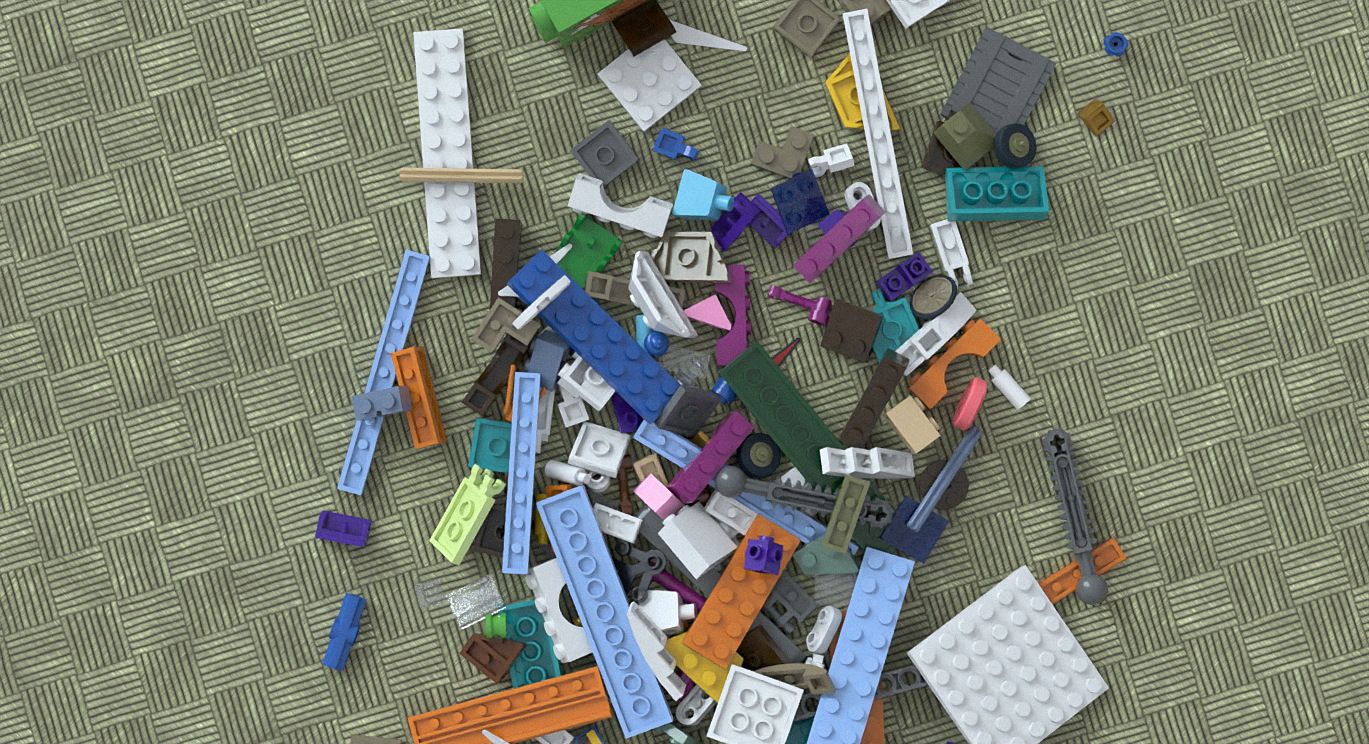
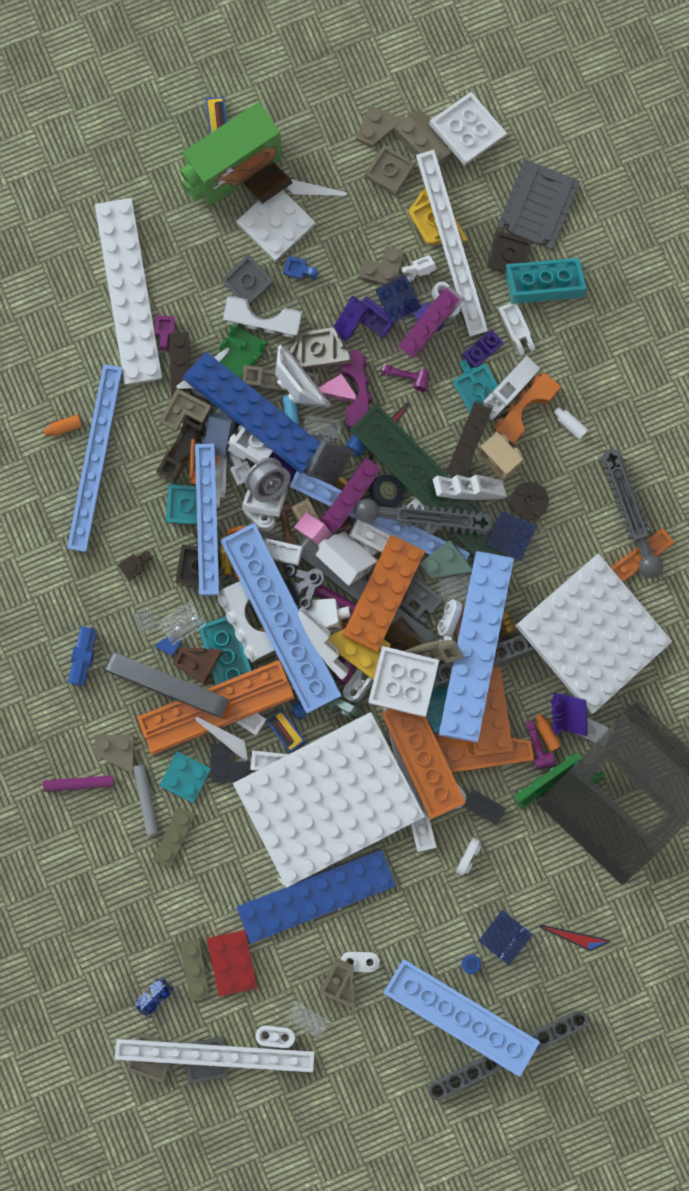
camera: 10 degrees left, 5 degrees down
(343, 528) = (74, 579): dark purple hinge -> none
(346, 326) = (63, 426): none -> orange cylinder
(382, 403) = (101, 474): sand blue piece -> none
(420, 518) = (133, 566): none -> dark brown plate
(425, 419) = (123, 473): orange fence -> none
(449, 682) = (166, 685): none -> dark grey beam
(453, 629) = (166, 646): none -> blue tile
(461, 175) = (140, 304): tan axle -> none
(466, 514) = (167, 556): yellowish green tile -> none
(490, 208) = (164, 326): none -> magenta plate
(496, 625) = (198, 638): bright green wheel -> none
(538, 305) = (210, 386): white tile -> none
(566, 473) = (241, 518): white cylinder -> none
(604, 429) = (267, 479): none -> light grey wheel
(615, 730) = (298, 710): none -> blue plate
(656, 343) = (300, 414): blue plate -> none
(701, 198) = (323, 304): medium azure torso -> none
(763, 556) = (398, 562): dark purple brick -> none
(845, 513) = (457, 523): olive plate -> none
(851, 330) = (447, 391): dark brown plate -> none
(898, 646) = (506, 625): none -> pearl gold wheel
(933, 296) = (506, 360): dark tan wheel -> none
(944, 479) = (529, 494): sand blue axle -> none
(966, 136) = (518, 239): olive slope -> none
(970, 403) = (542, 436): coral wheel -> none
(1015, 145) = (556, 243): black wheel -> none
(1096, 117) = (614, 218): pearl gold slope -> none
(1120, 40) = (622, 159): blue plate -> none

